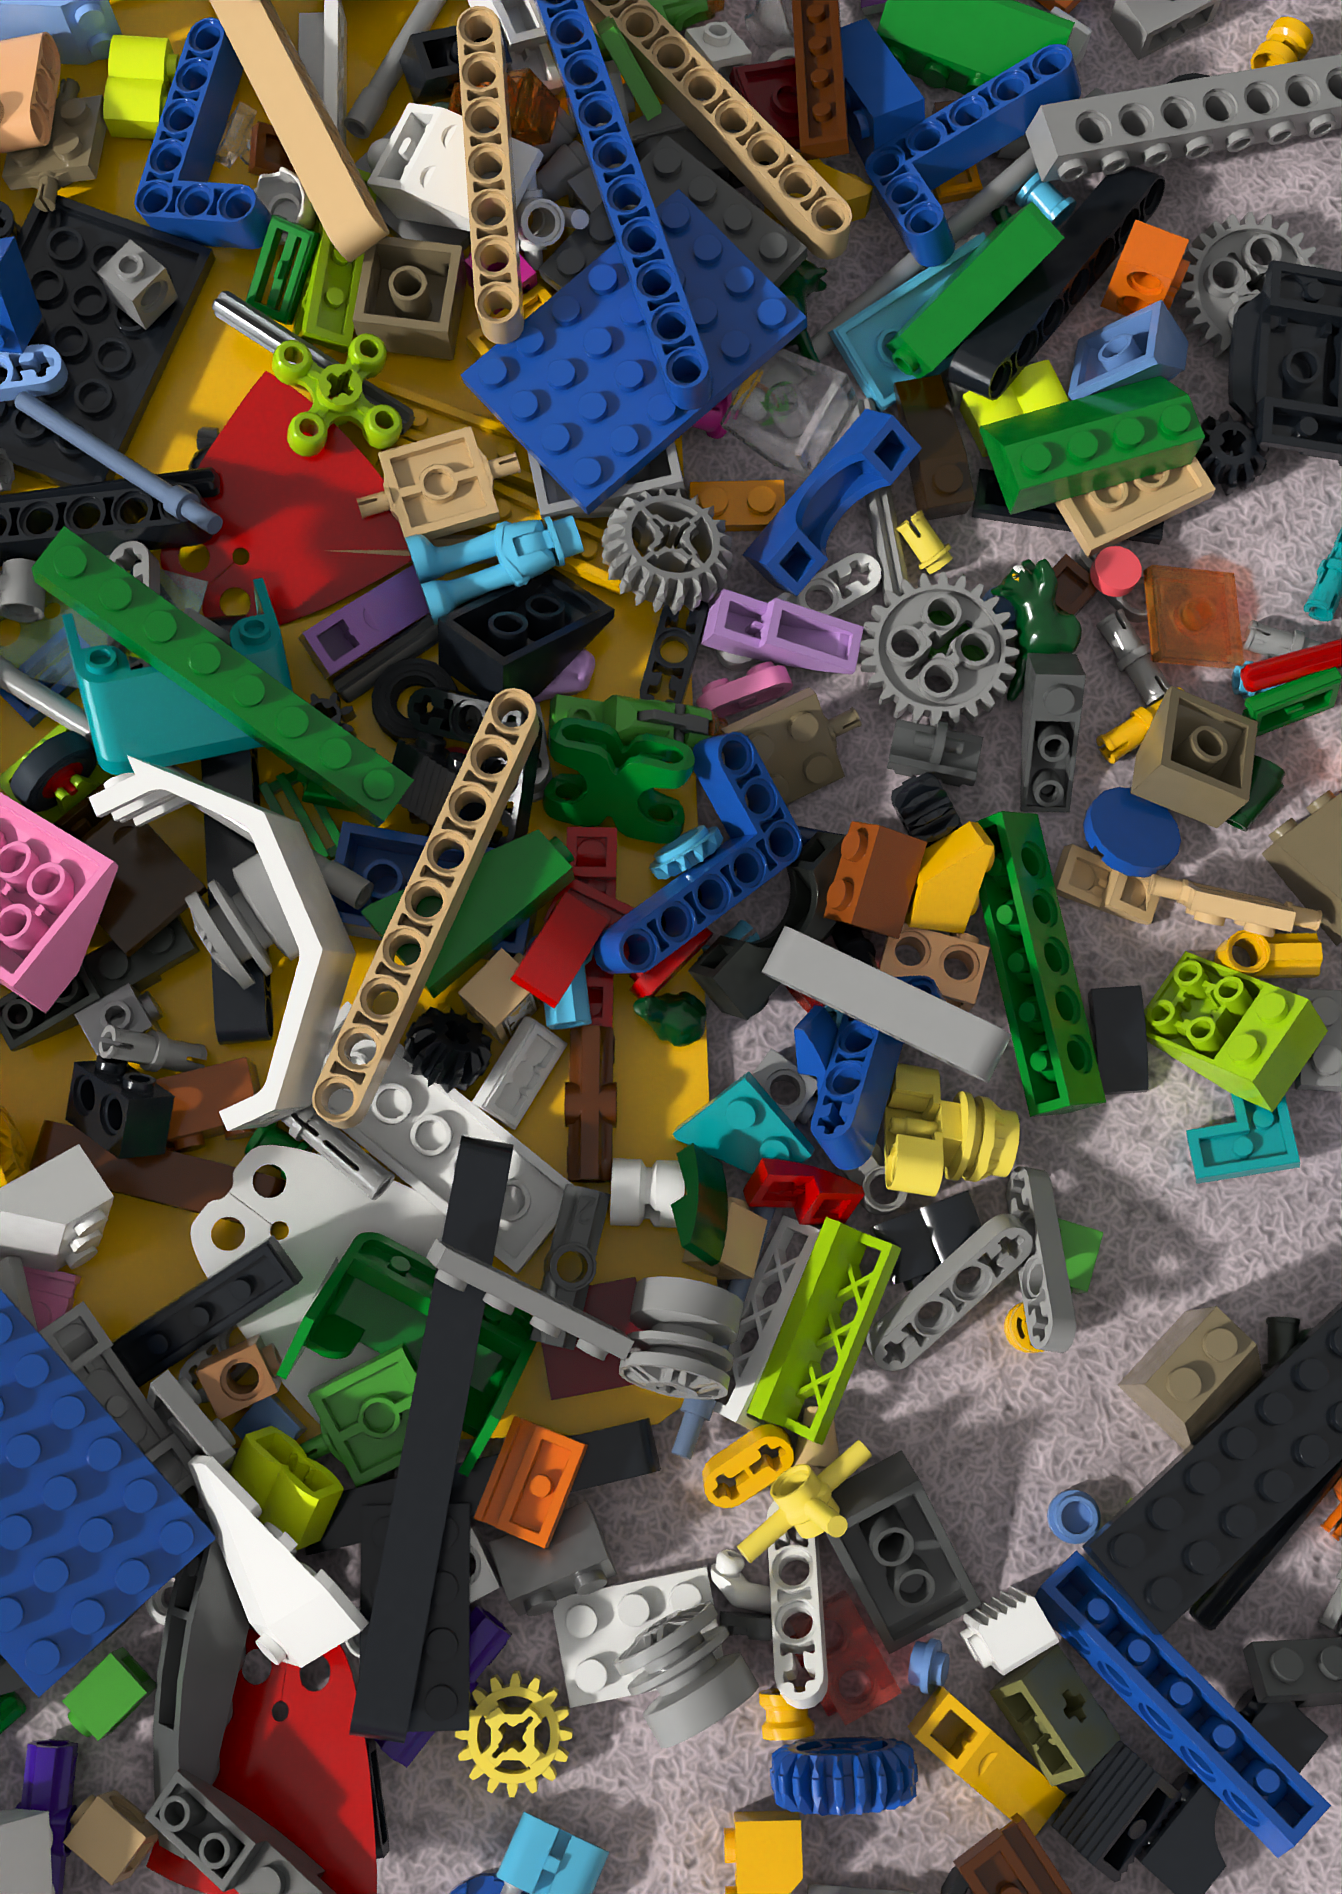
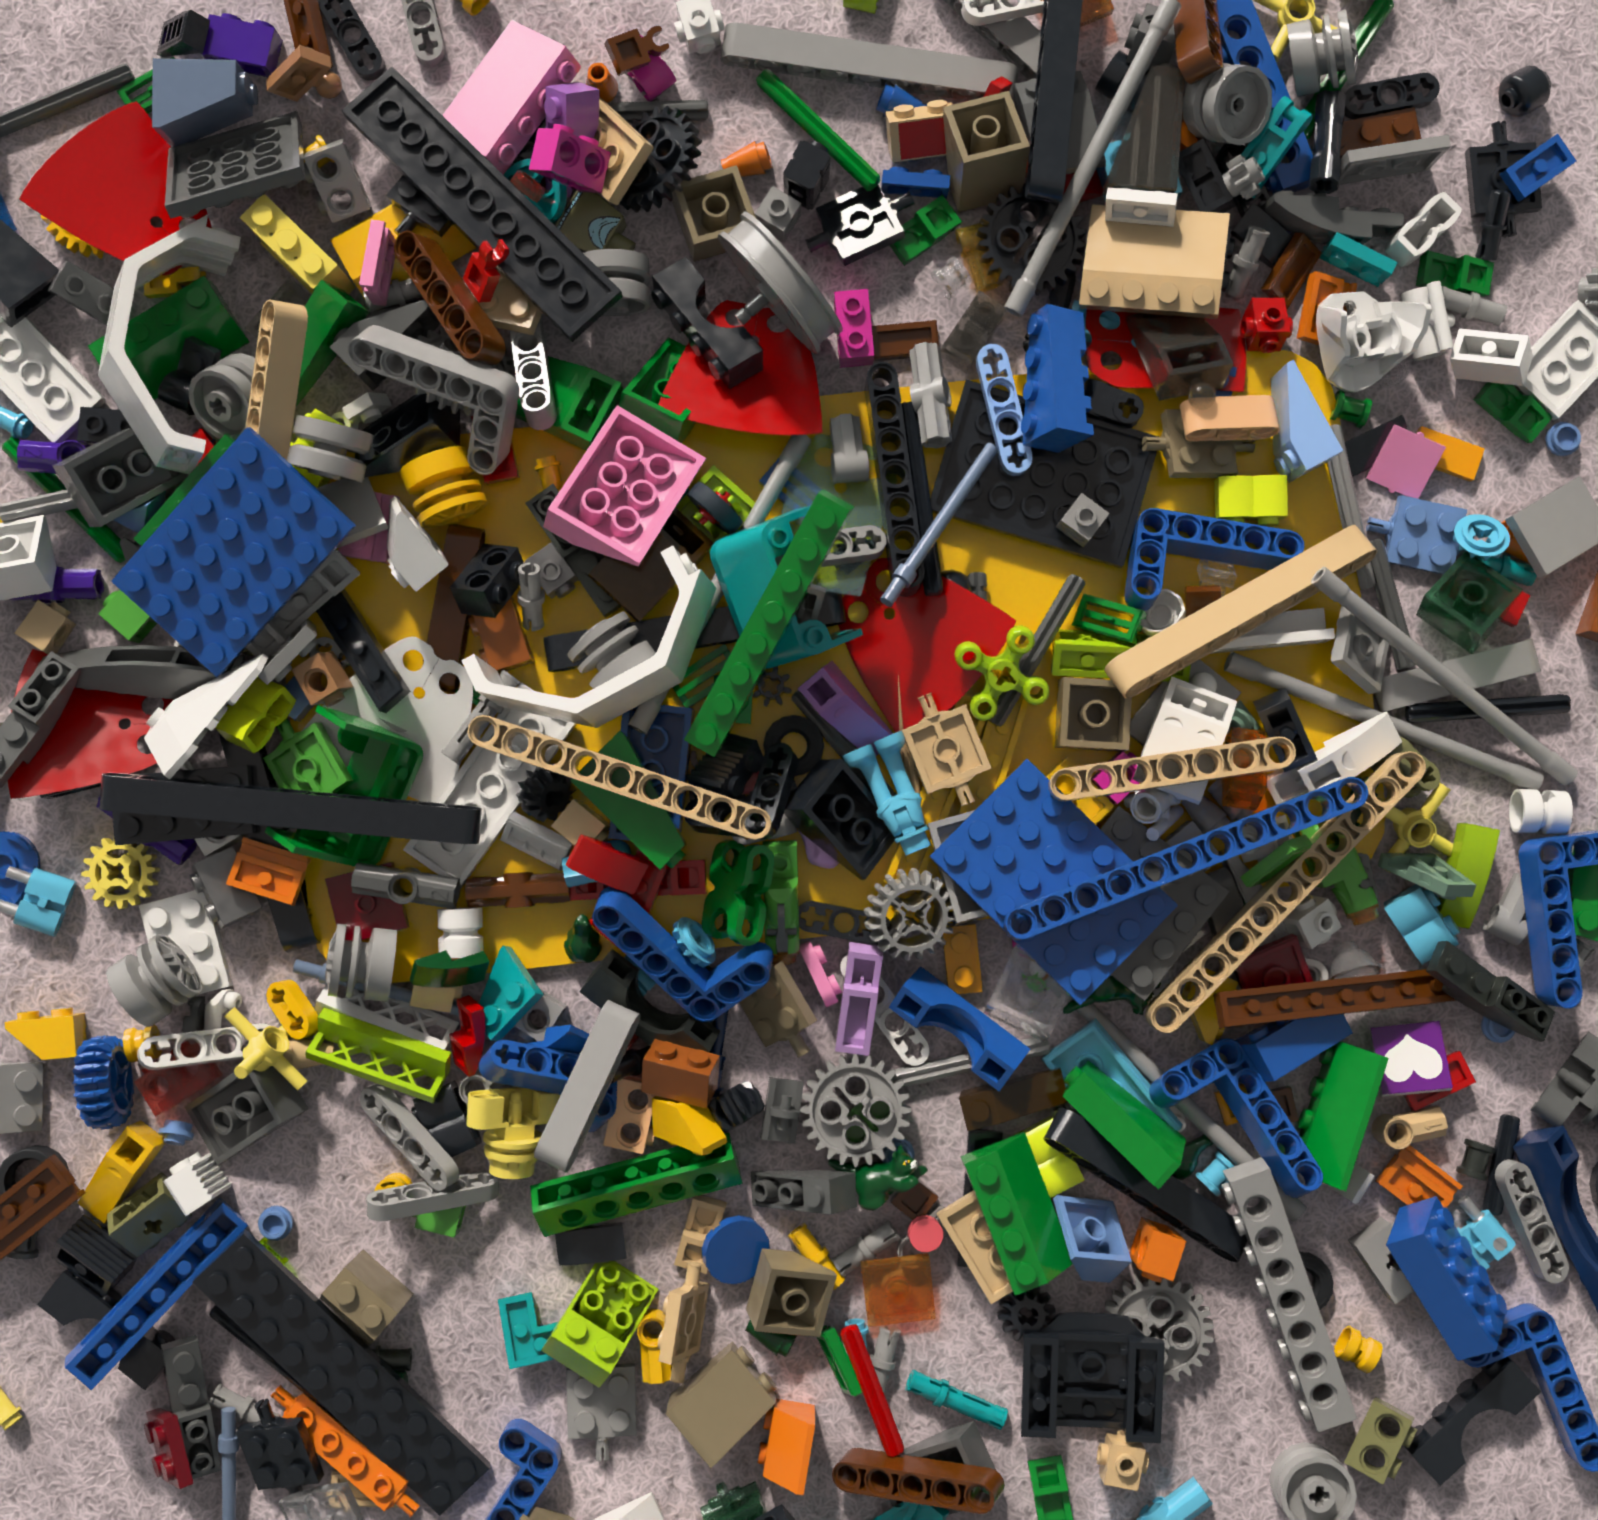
camera: 85 degrees right, 10 degrees up
(508, 1292) = (374, 856): light grey plate -> none
(927, 545) = (942, 1094): light yellow pin -> none

